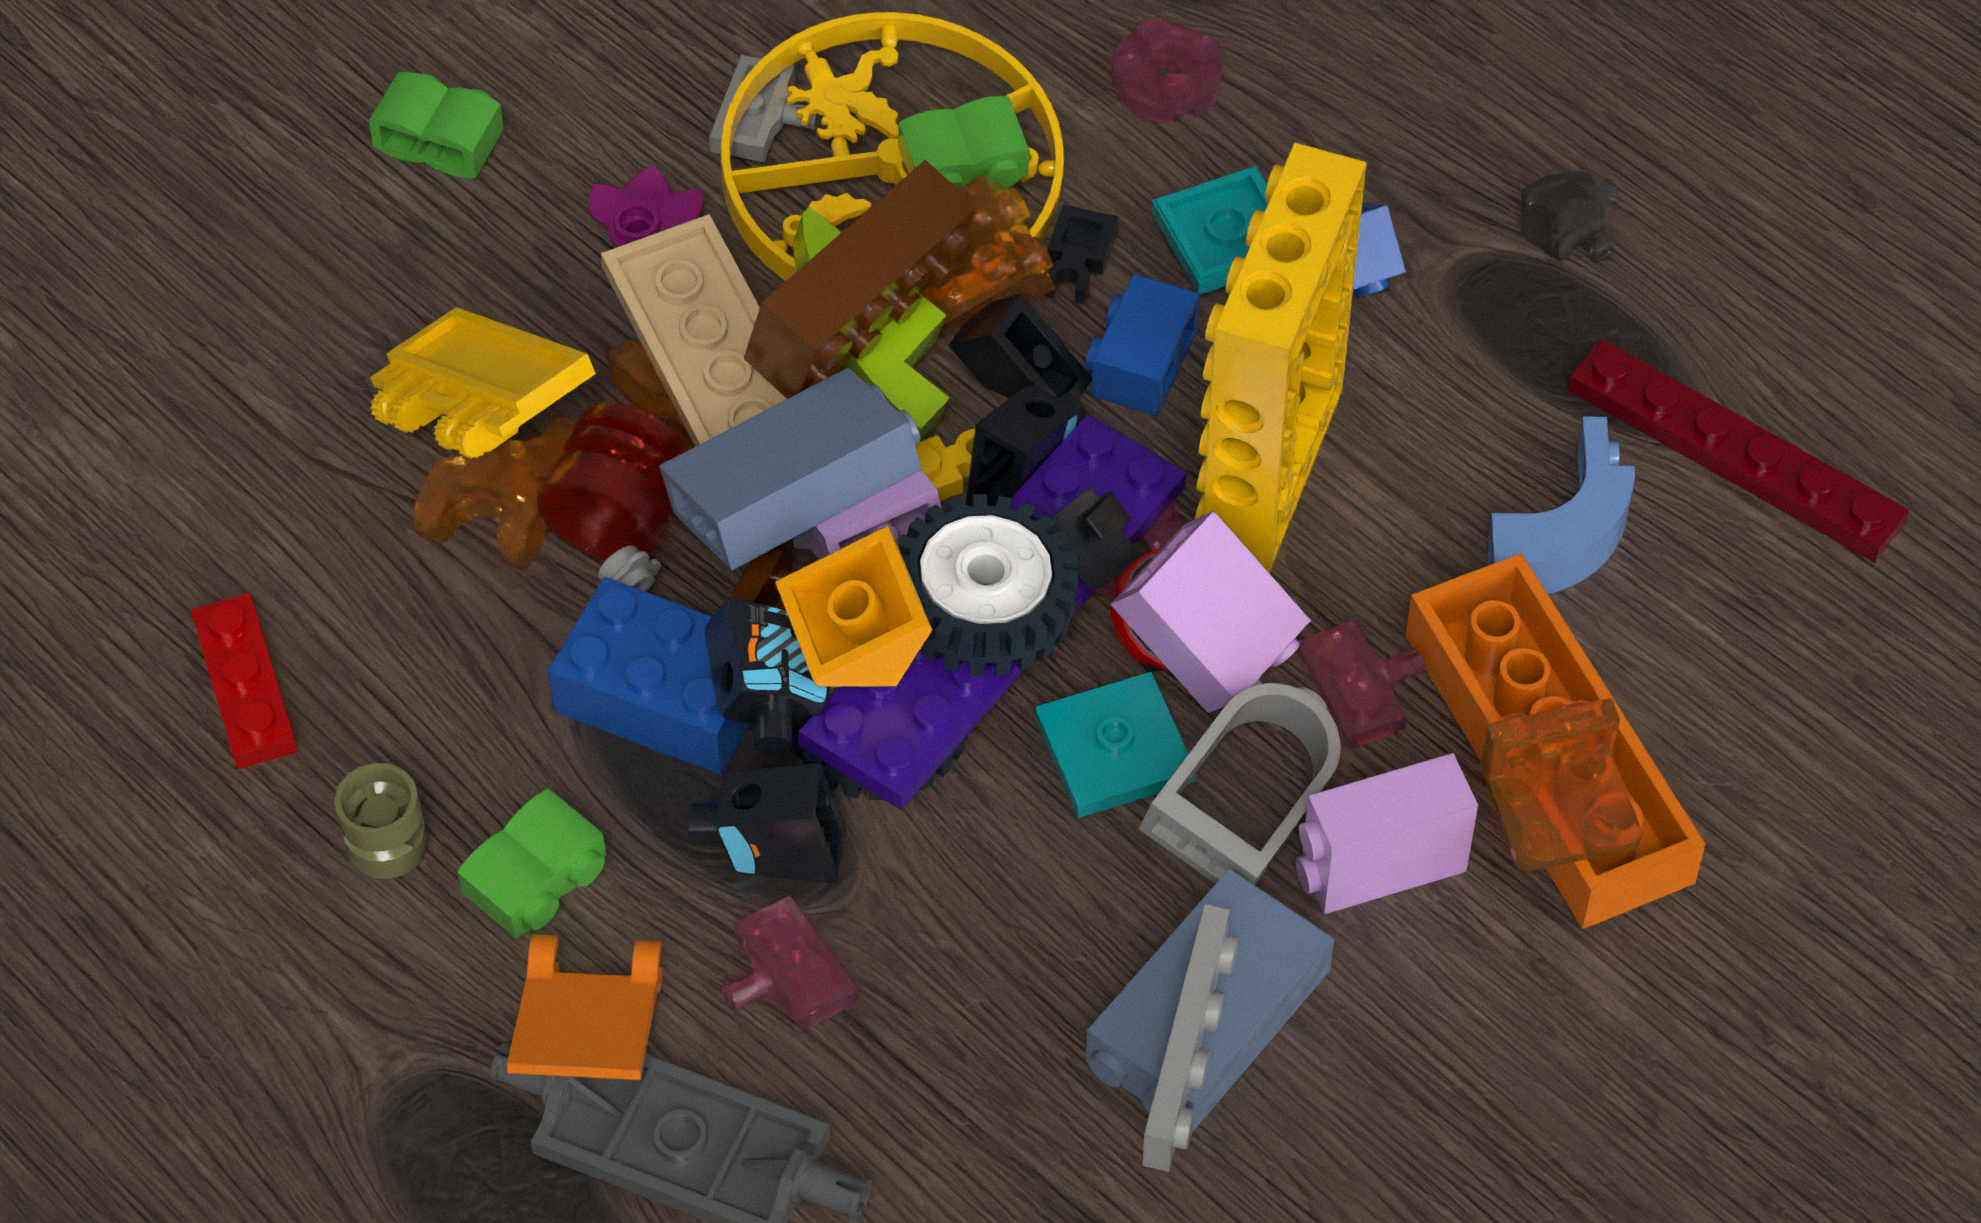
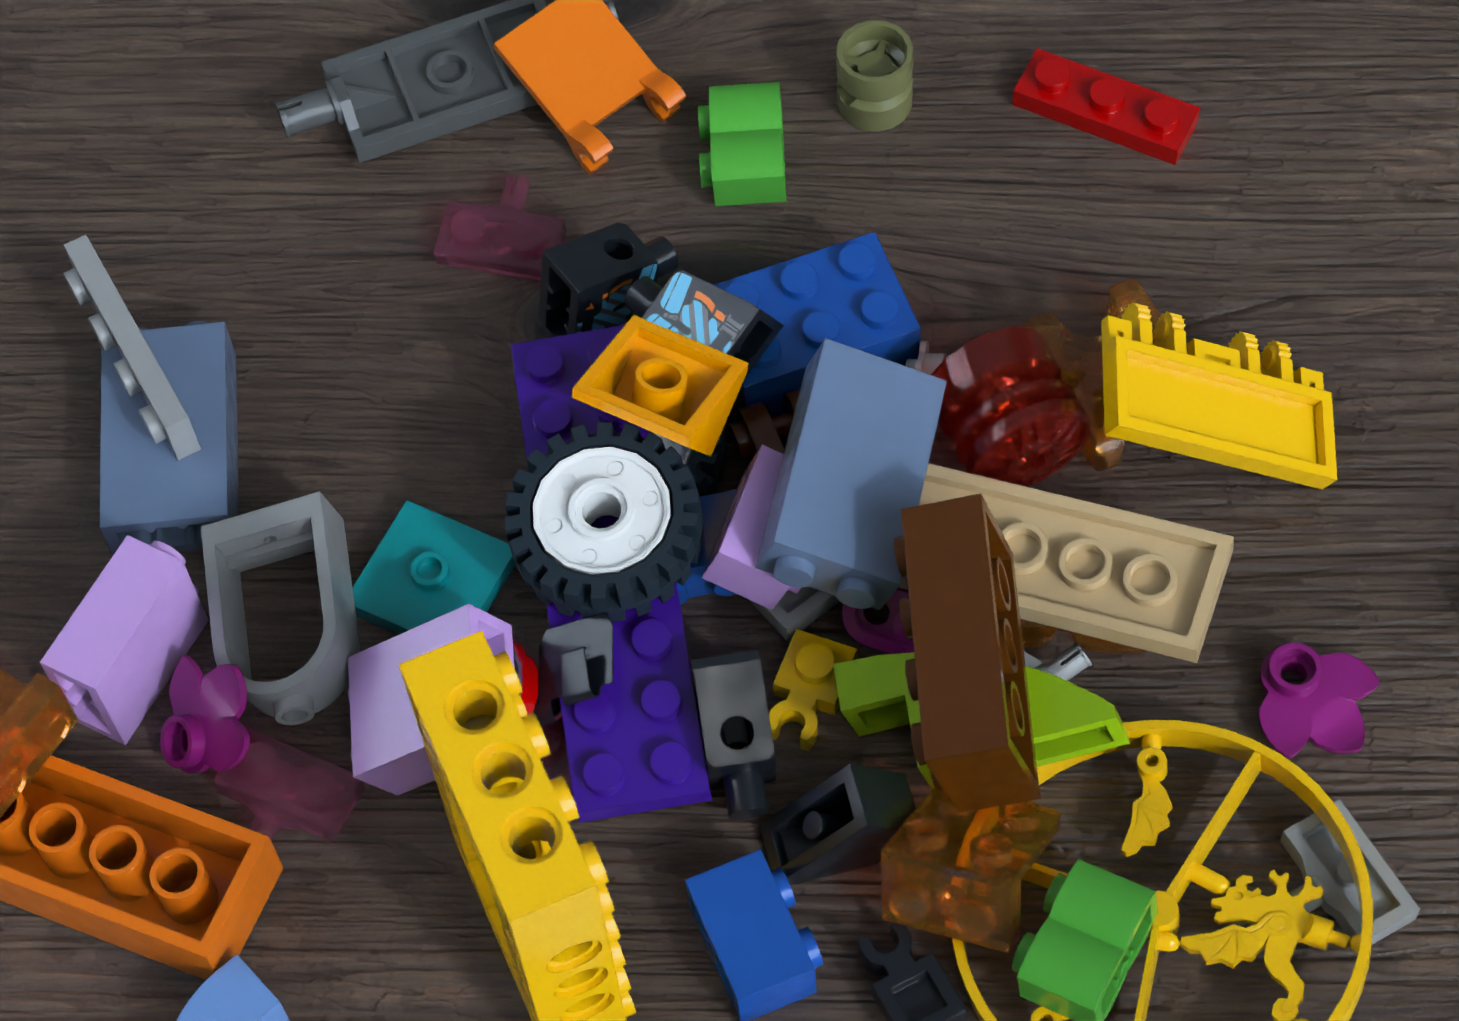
camera: 140 degrees right, 5 degrees up
(1374, 735) = (205, 718): none -> magenta plate

